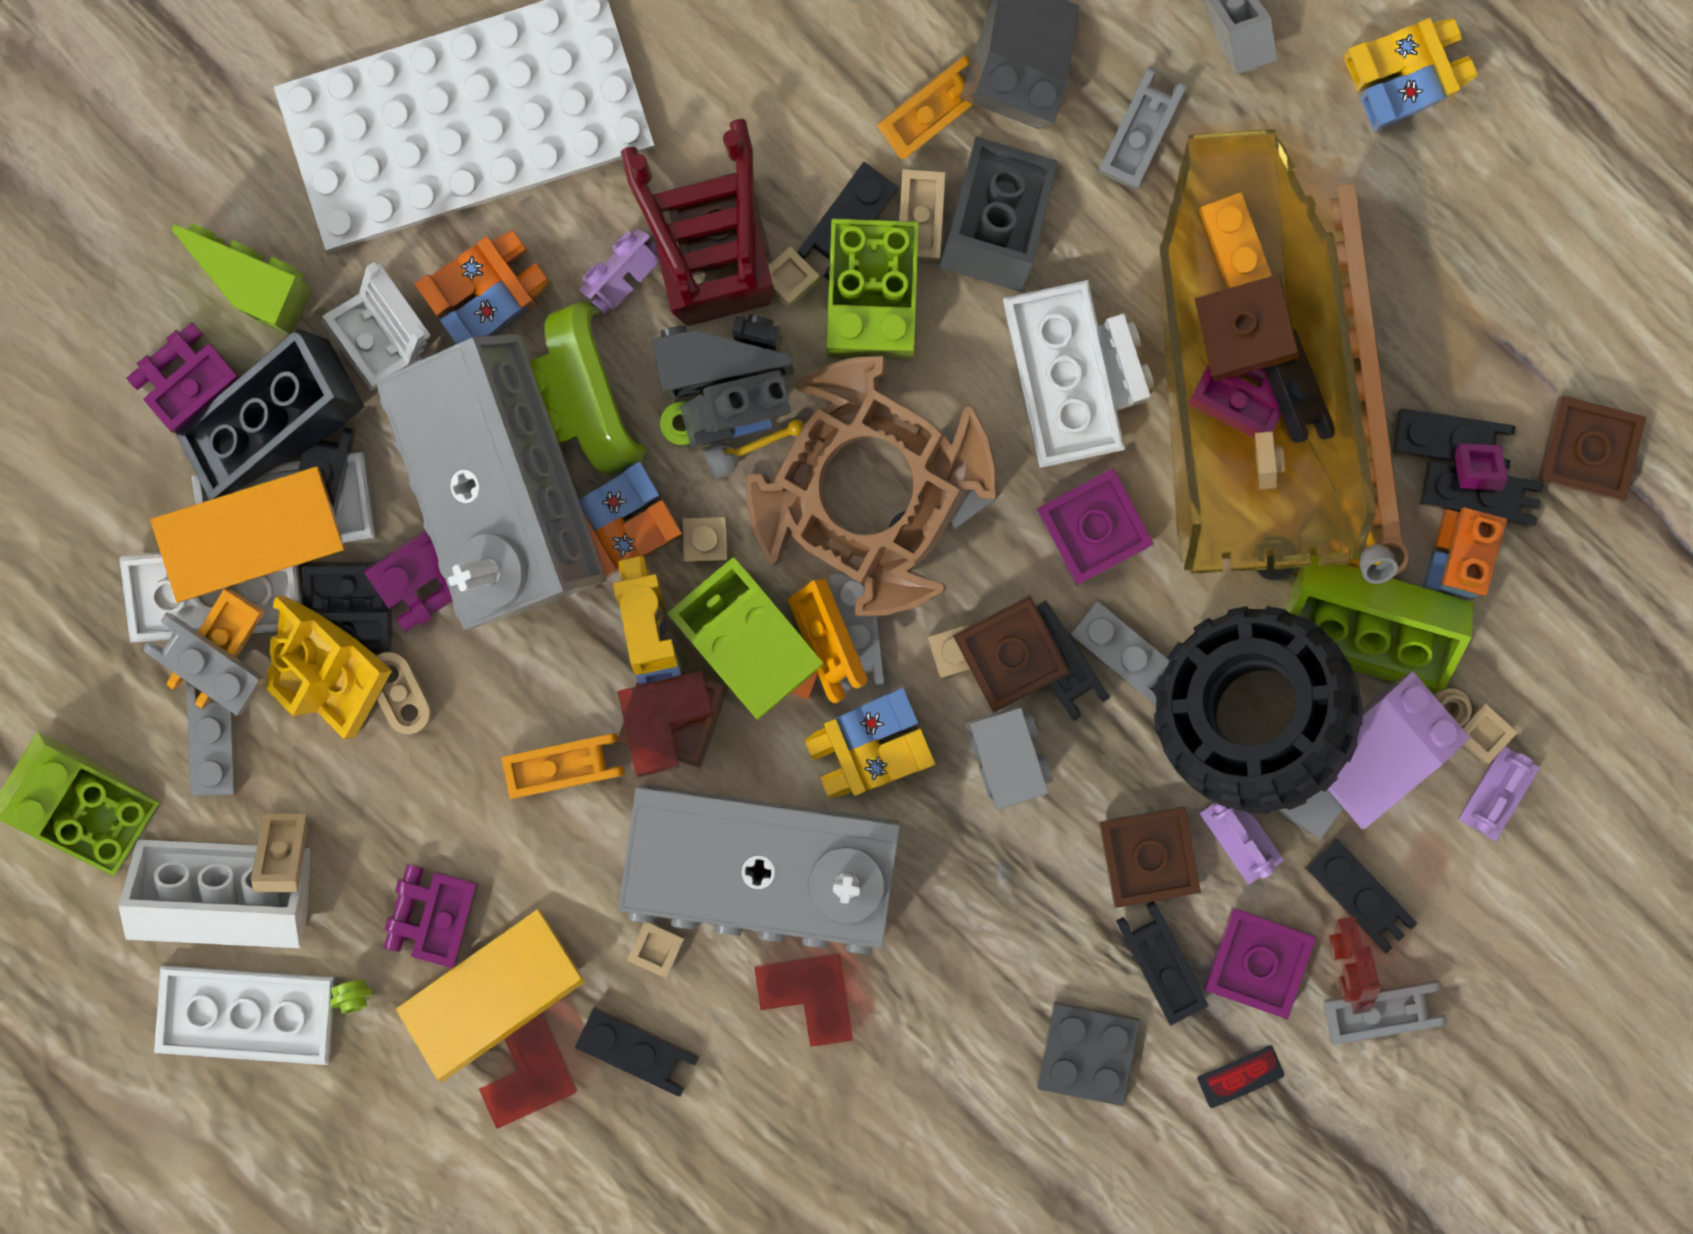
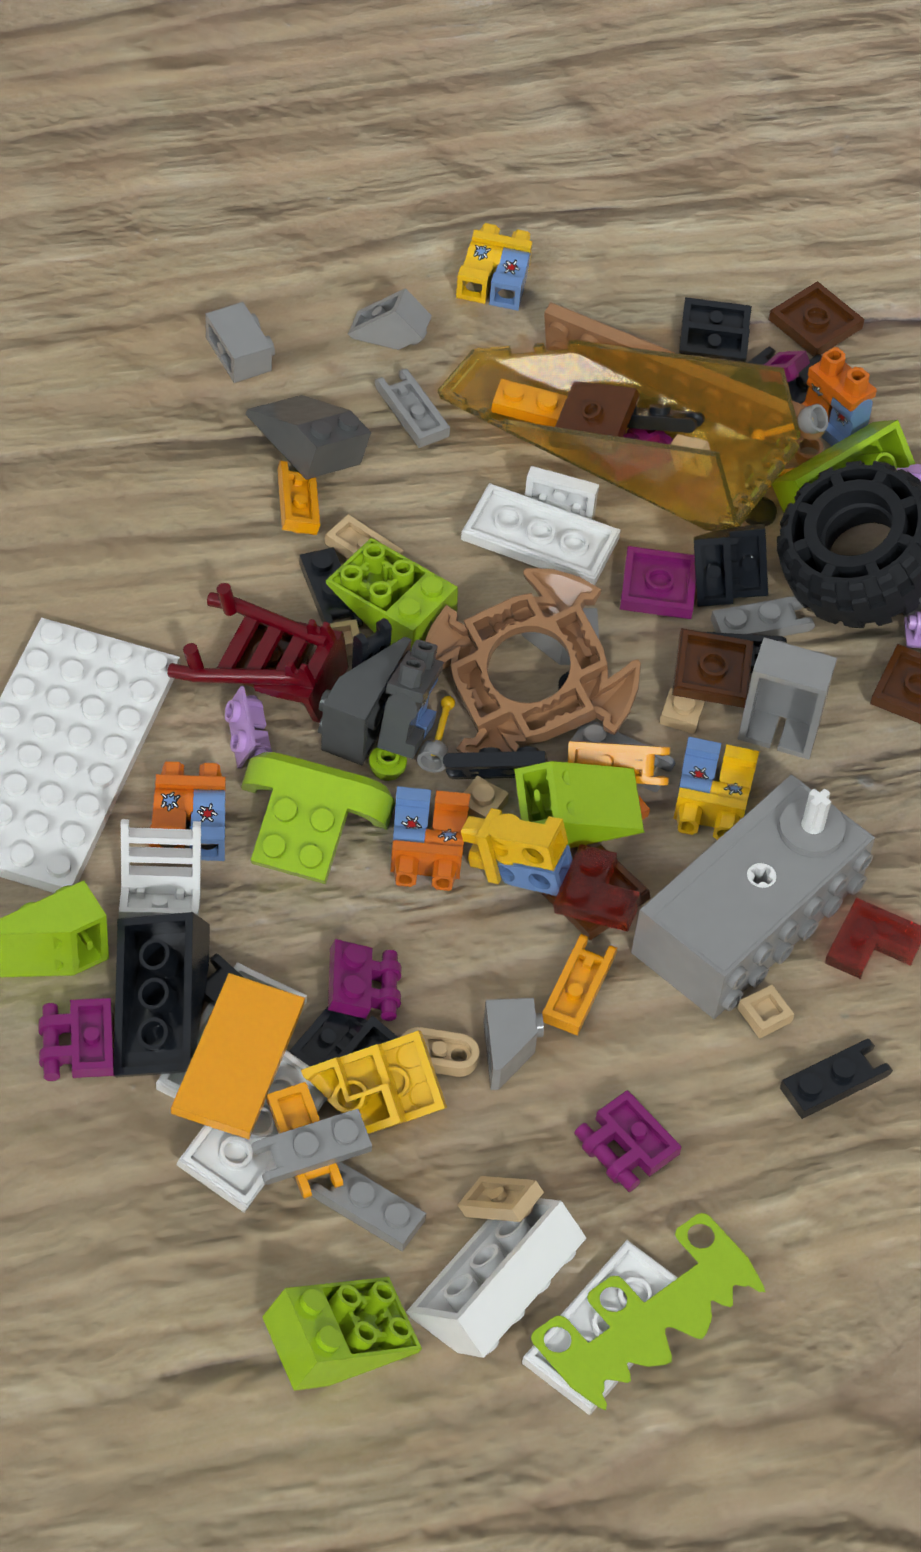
camera: 60 degrees left, 35 degrees down
(253, 1044) = (639, 1328): none -> lime piece
(351, 996) = (651, 1233): lime plate -> none
(457, 745) = (510, 1036): none -> light grey slope
(490, 479) = (279, 856): light grey piece -> none
(490, 995) = (722, 1138): yellow tile -> none
(540, 1075) = (810, 1147): clear red plate -> none
(740, 527) = (491, 762): none -> black hinge
(999, 214) = (405, 507): dark grey slope -> none
(1155, 586) = (731, 565): none -> black slope
(1496, 354) = (715, 329): none -> black slope

